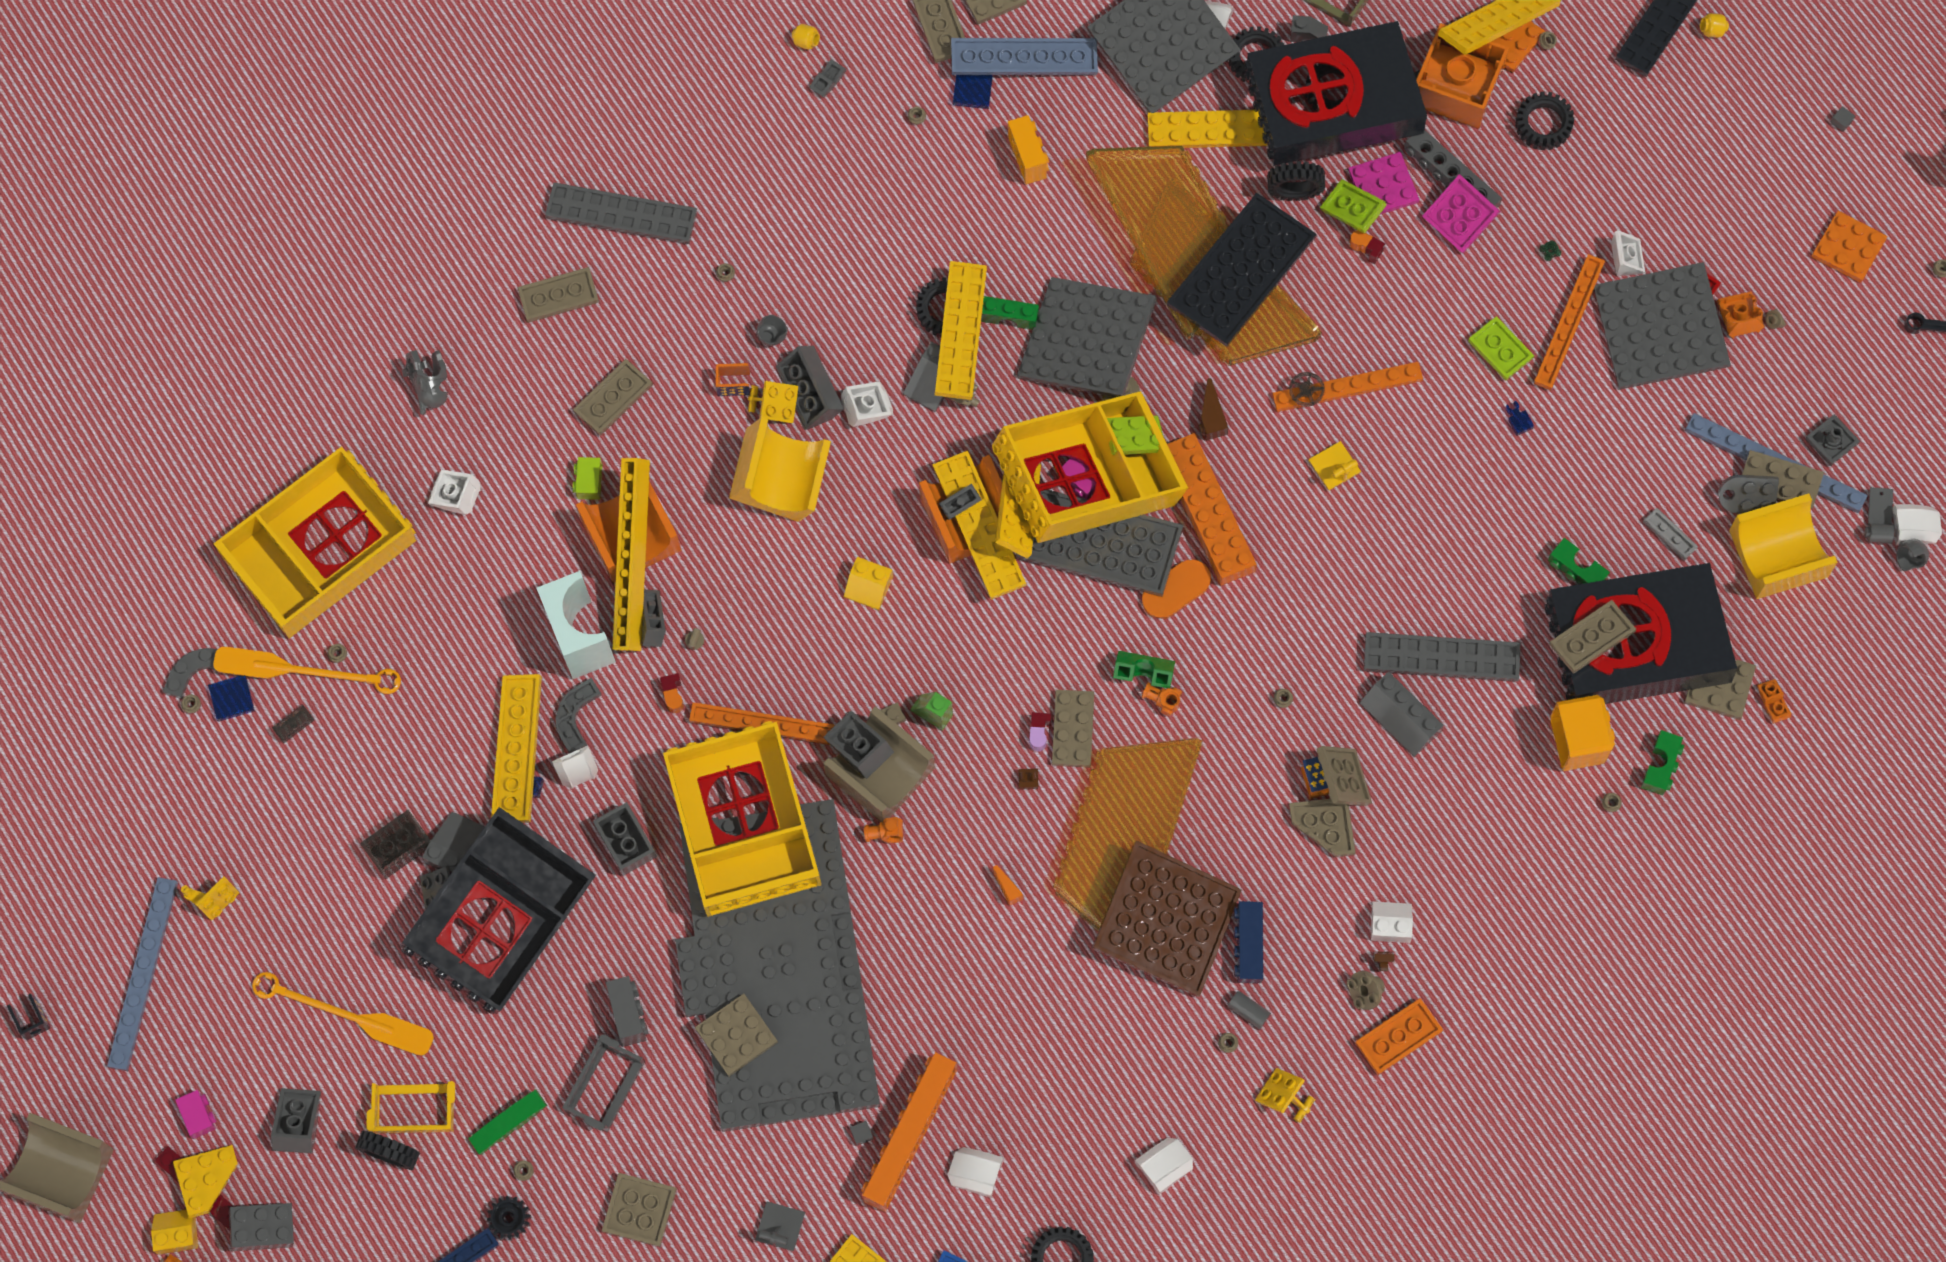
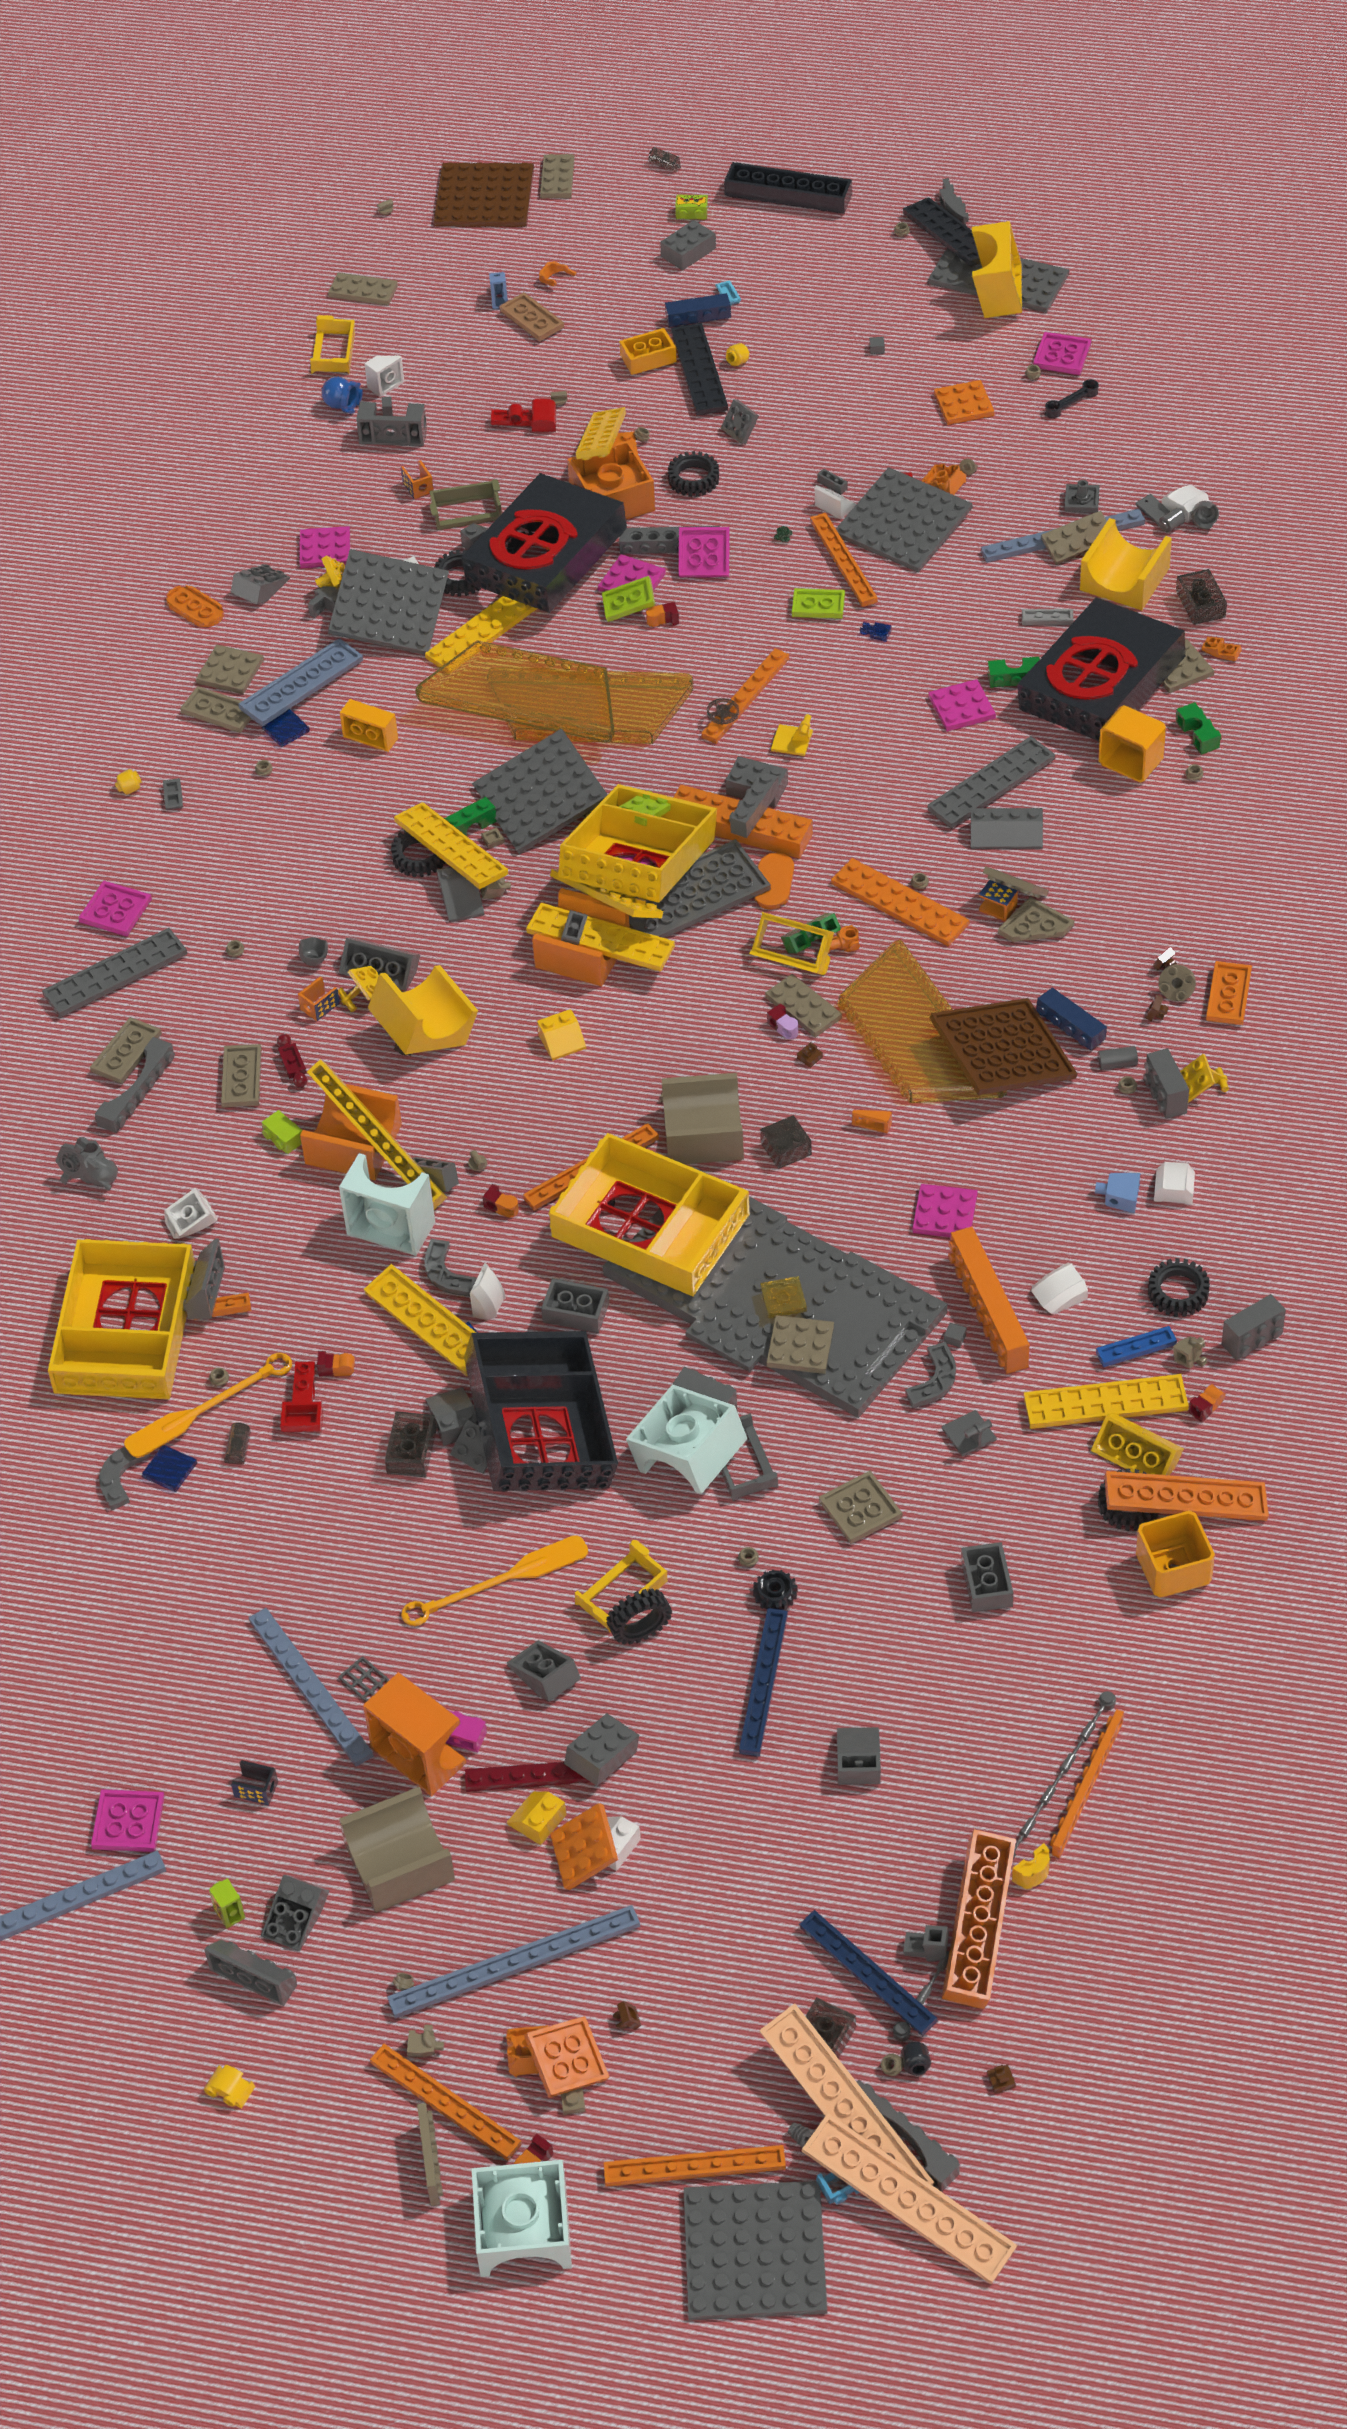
camera: 45 degrees left, 20 degrees down
(145, 1094) = (412, 1733): none -> orange piece
(186, 1016) = (359, 1681): none -> dark grey window
(191, 698) = (141, 1492): dark tan plate -> none
(204, 1178) = (519, 1761): yellow plate -> none
(214, 900) = (311, 1595): yellow plate -> none
(355, 742) = (303, 1412): none -> red plate
(397, 593) = (232, 1304): none -> orange plate
(399, 565) = (205, 1282): none -> dark grey slope
(420, 721) = (335, 1364): none -> leg
(507, 1122) = (701, 1536): green slope -> none
(568, 1037) = (689, 1434): none -> light aqua piece
(571, 323) = (114, 1113): none -> dark grey arch
(660, 418) = (292, 1060): none -> dark red plate
(679, 151) = (115, 908): none -> dark pink plate
(765, 983) = (783, 1297): none -> clear yellow plate
(807, 1163) = (942, 1380): none -> dark grey plate
(859, 744) = (674, 1112): dark grey slope -> none
(866, 403) = (431, 942): white slope -> none
(889, 831) = (754, 1153): orange connector -> none
(923, 842) = (786, 1142): none -> clear smoke brick
(933, 709) = (698, 1058): bright green slope -> none
(973, 1018) = (944, 1210): none -> dark pink plate
(1014, 344) = (492, 838): none -> dark tan tile
(1115, 1132) = (1120, 1191): none -> medium blue torso
(1130, 661) = (823, 960): none -> yellow piece
(1212, 419) = (675, 770): reddish brown slope -> none
(1219, 511) = (754, 804): none -> dark grey brick
(1241, 269) = (603, 670): black plate -> none
(1248, 702) = (900, 902): none -> orange plate
(1249, 1074) = (1166, 1083): none -> dark grey brick
(1261, 483) = (746, 770): none -> dark grey brick
(1280, 175) = (585, 613): black tyre -> none
(1325, 995) = (1156, 1009): none -> reddish brown tile
(1391, 922) = (1146, 939): white slope -> none
(1504, 557) = (962, 705): none -> dark pink plate
(1592, 636) = (1078, 680): dark tan plate -> none
(1635, 102) = (741, 424): none -> dark grey plate
(1648, 231) = (832, 481): none -> dark grey piece
(1749, 492) = (1068, 556): dark grey plate -> none
(1811, 636) = (1201, 596): none -> clear smoke brick

